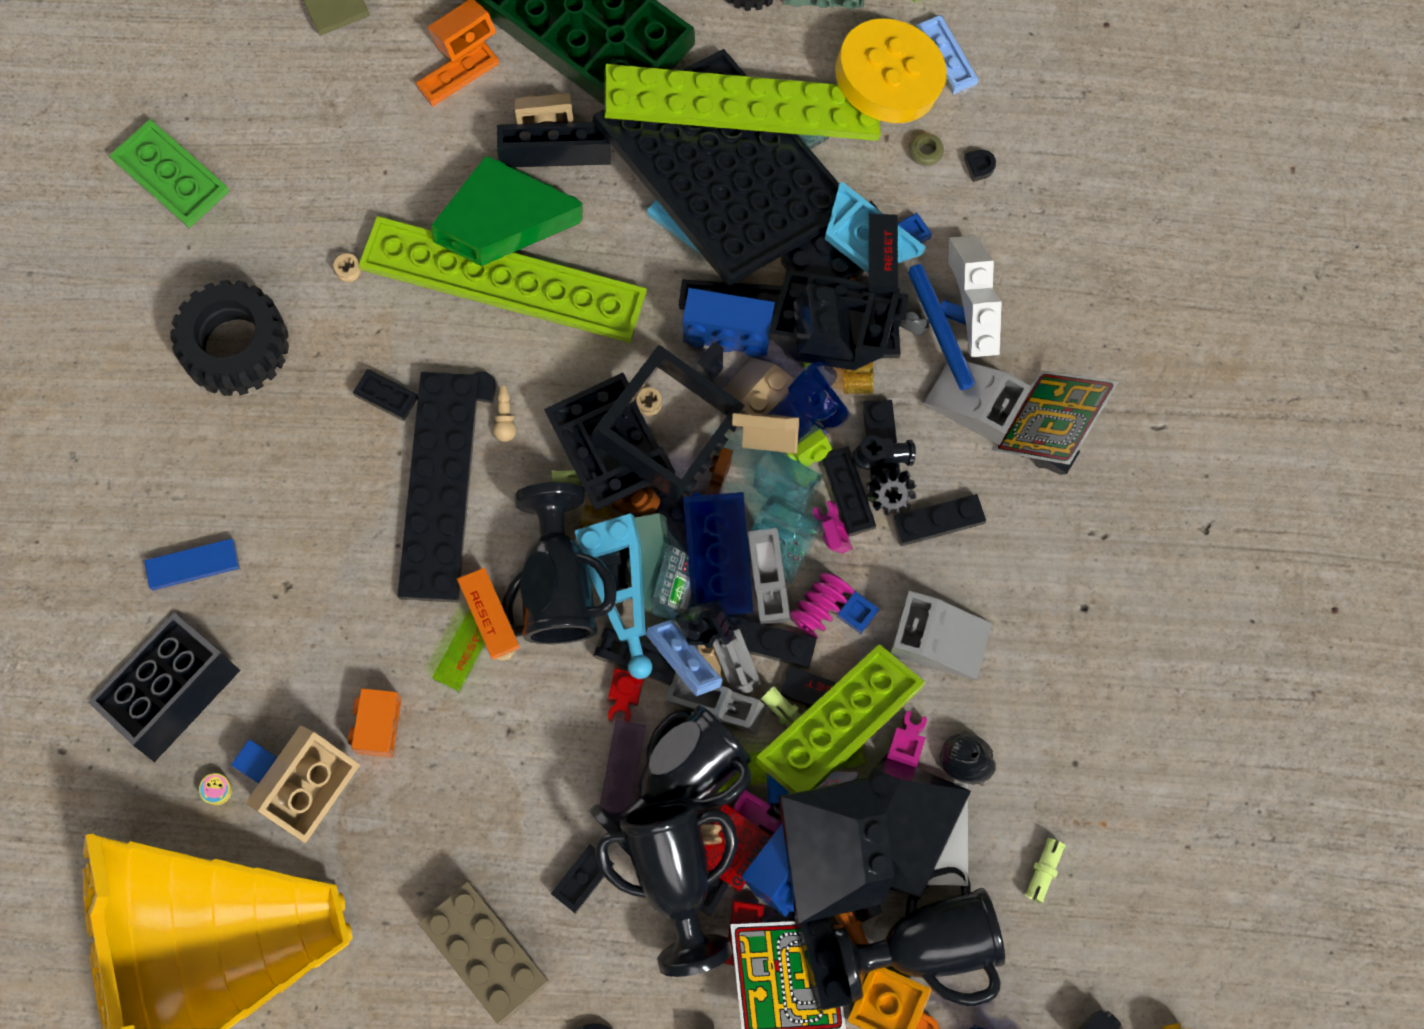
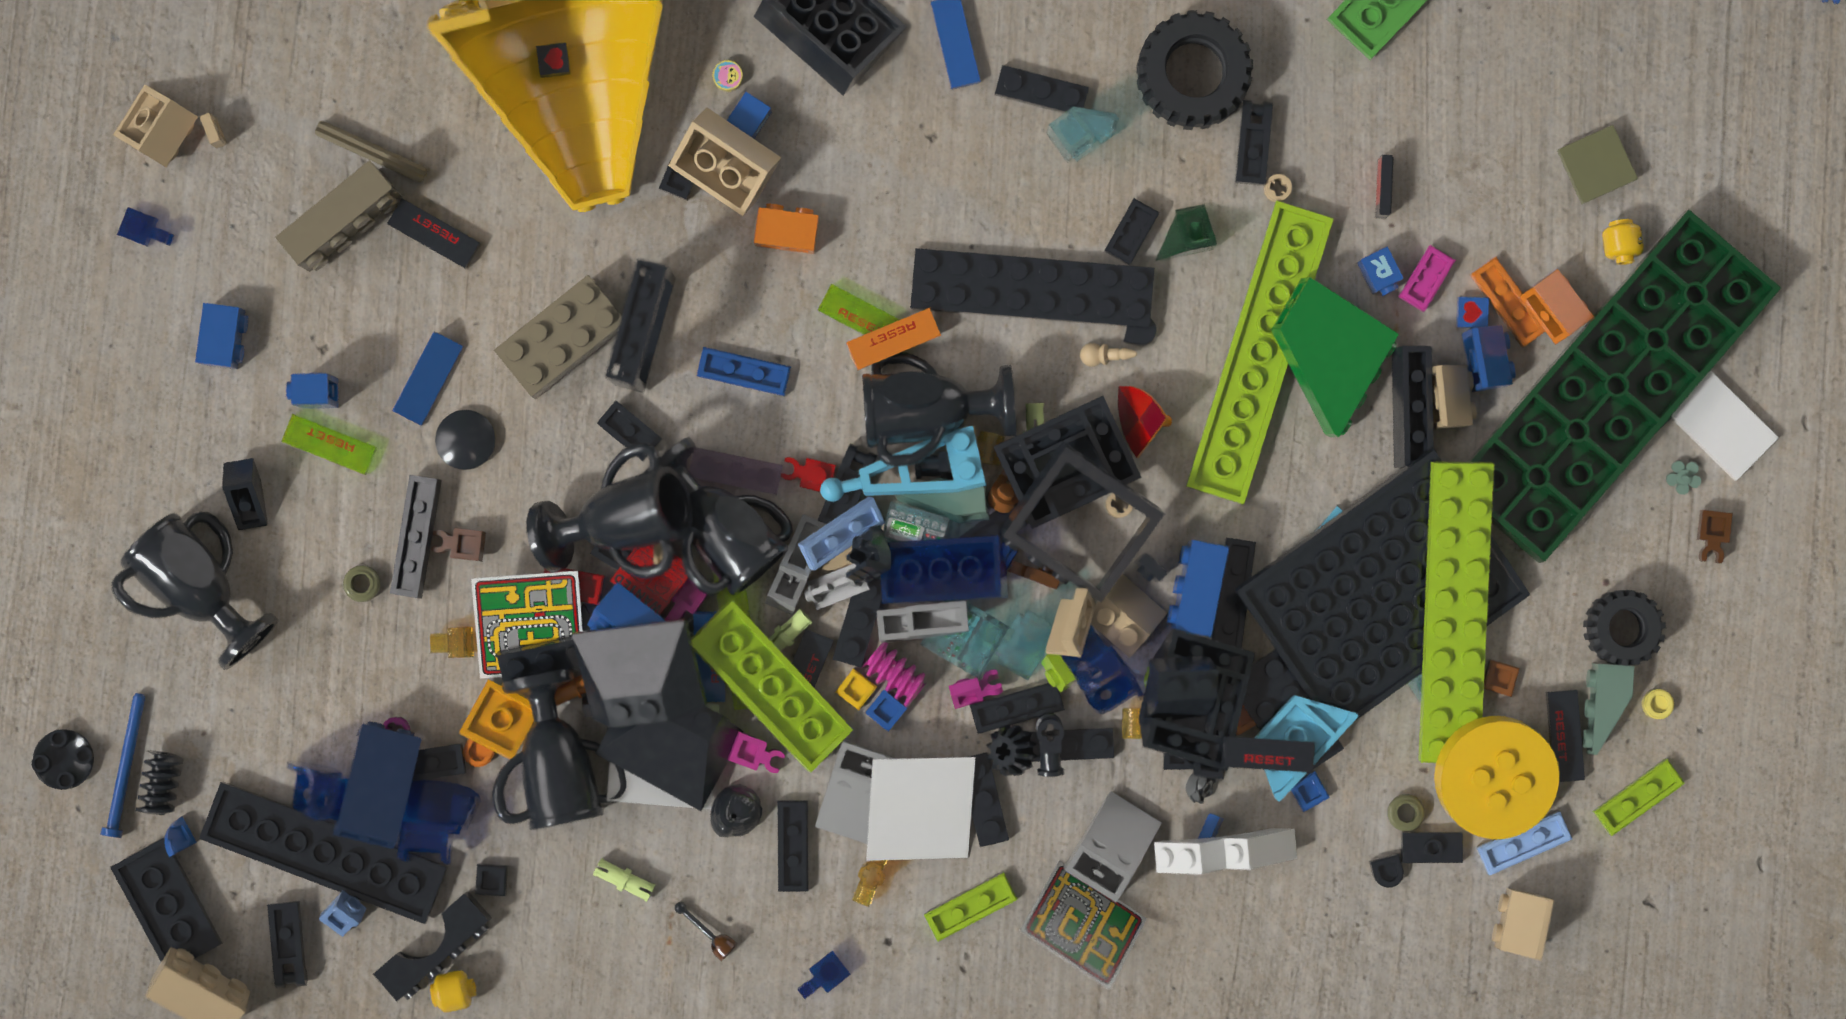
camera: 90 degrees right, 15 degrees up
(188, 971) = (553, 60): none -> black tile
(245, 482) = (1040, 90): none -> black plate
(285, 438) = (1079, 129): none -> clear light blue slope
(304, 287) = (1253, 143): none -> black plate
(324, 839) = (676, 184): none -> black tile
(348, 174) = (1384, 186): none -> black tile
(388, 343) = (1188, 234): none -> clear green slope
(427, 176) = (1380, 272): none -> blue brick
(435, 139) = (1426, 278): none -> dark pink plate
(466, 102) = (1472, 312): none -> blue tile
(471, 859) = (640, 325): none -> black window
(507, 83) = (1488, 357): none -> blue slope
(520, 764) = (743, 371): none -> blue tile
(562, 378) = (1140, 417): none -> shield
(800, 71) = (1500, 678): none -> dark orange tile
(838, 644) = (856, 689): none -> yellow tile
(839, 22) = (1566, 733): none -> black tile
(941, 327) = (1189, 812): blue axle -> none
(953, 573) = (920, 808): none -> white sticker
(956, 127) = (1431, 847): none -> black plate
(997, 701) = (793, 846): none -> black tile
(1021, 45) = (1522, 923): none -> tan slope
(1033, 626) = (866, 890): none -> clear yellow axle
(1044, 529) = (970, 906): none -> lime tile
(1056, 1012) = (491, 880): none -> black tile
(1103, 768) = (721, 944): none -> hinge
(1123, 662) = (826, 973): none -> clear blue plate

